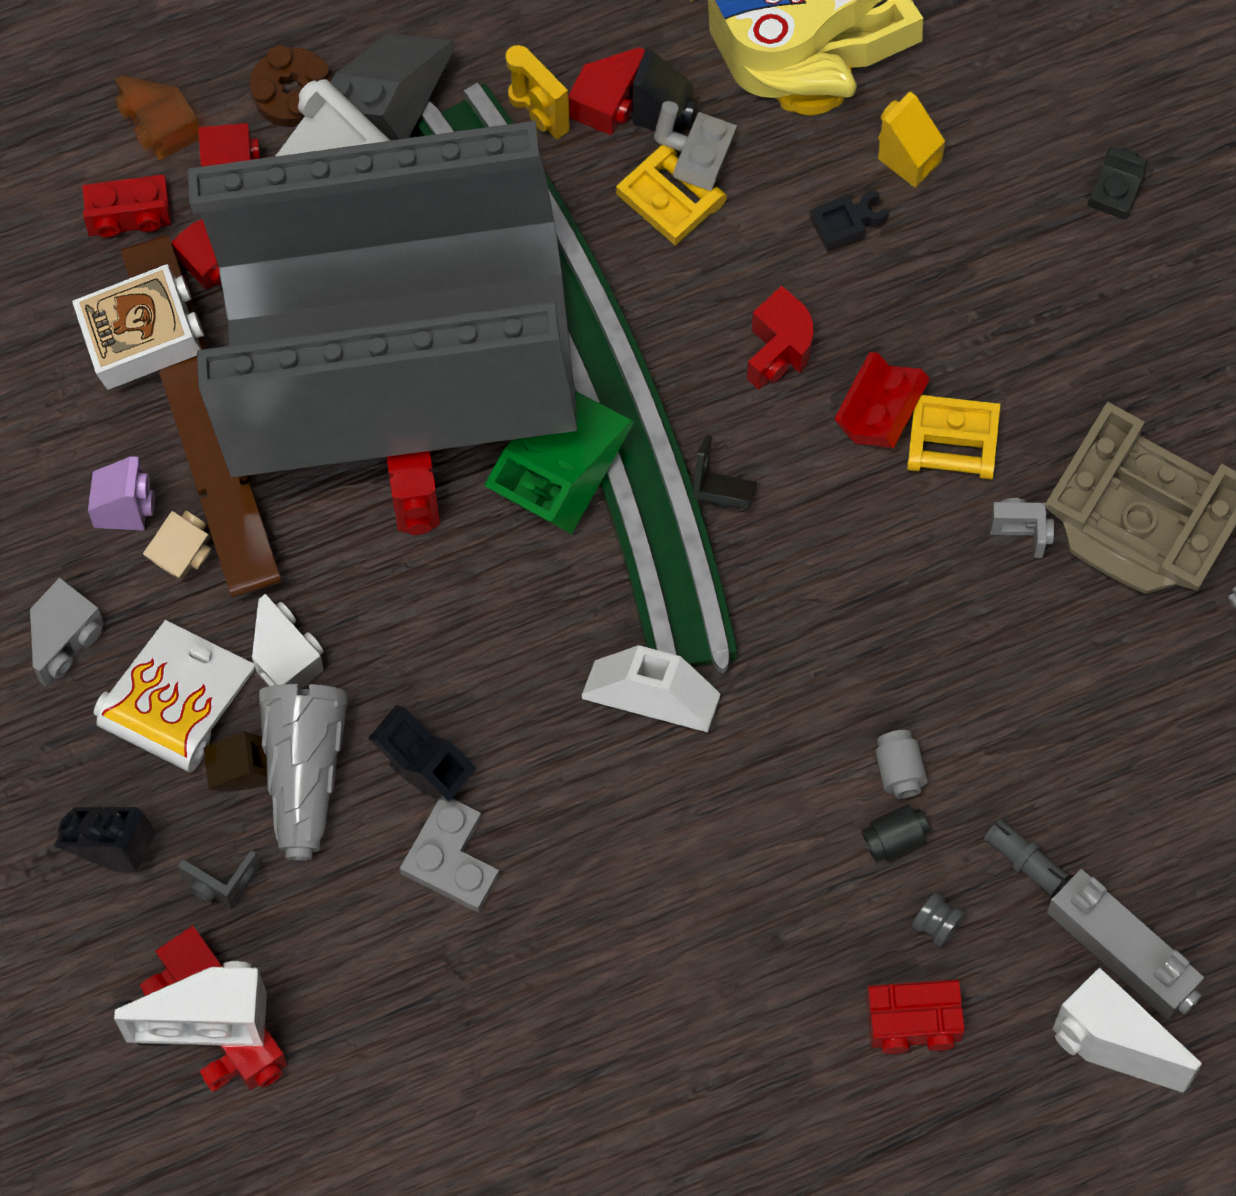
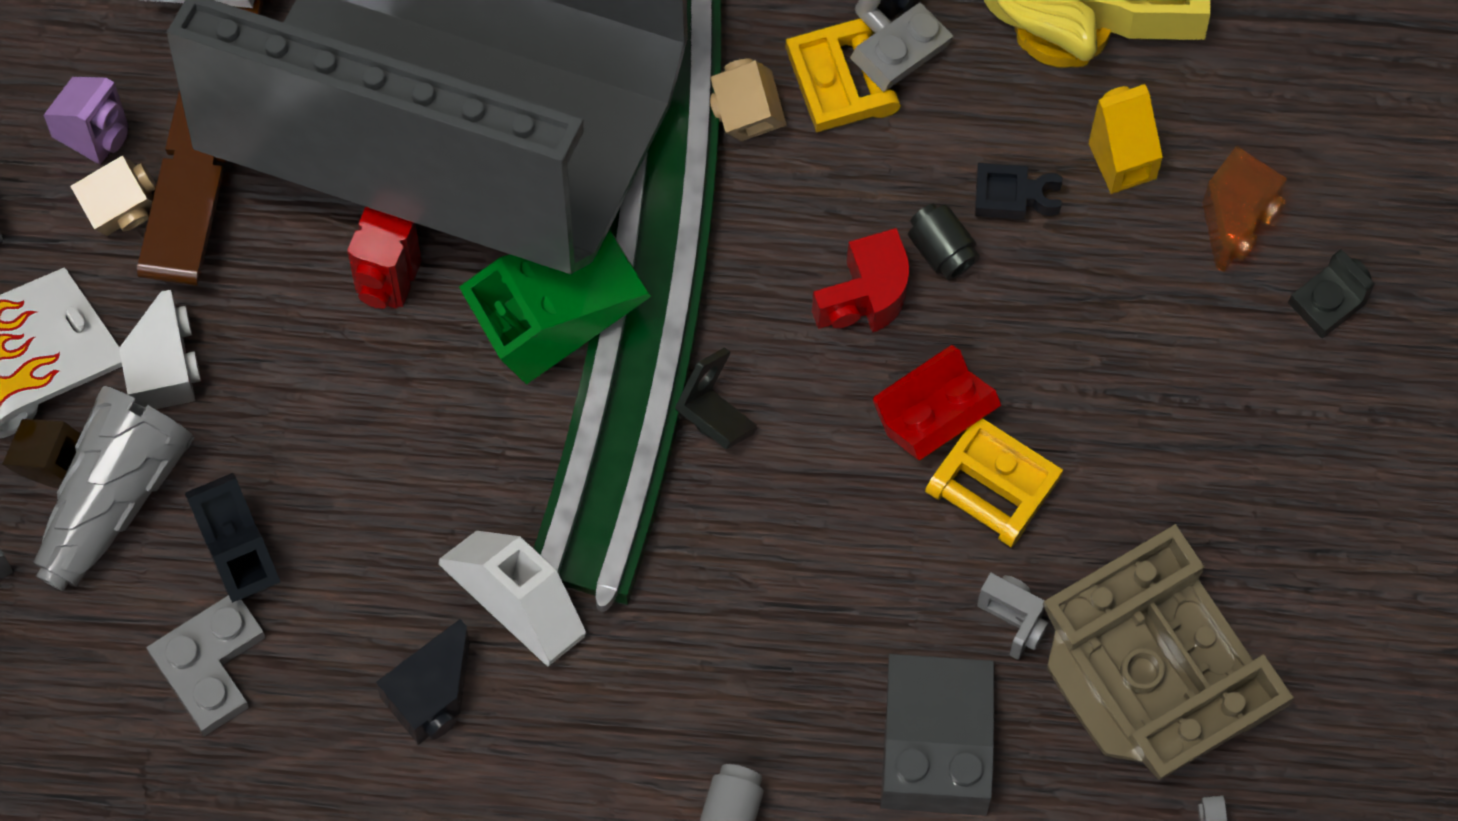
camera: 25 degrees right, 0 degrees up
(613, 244) = (746, 99): none -> tan brick
(629, 790) = (429, 685): none -> black slope
(816, 279) = (943, 240): none -> pearl dark grey brick
(1013, 151) = (1236, 204): none -> clear orange slope
(1019, 639) = (938, 735): none -> dark grey slope

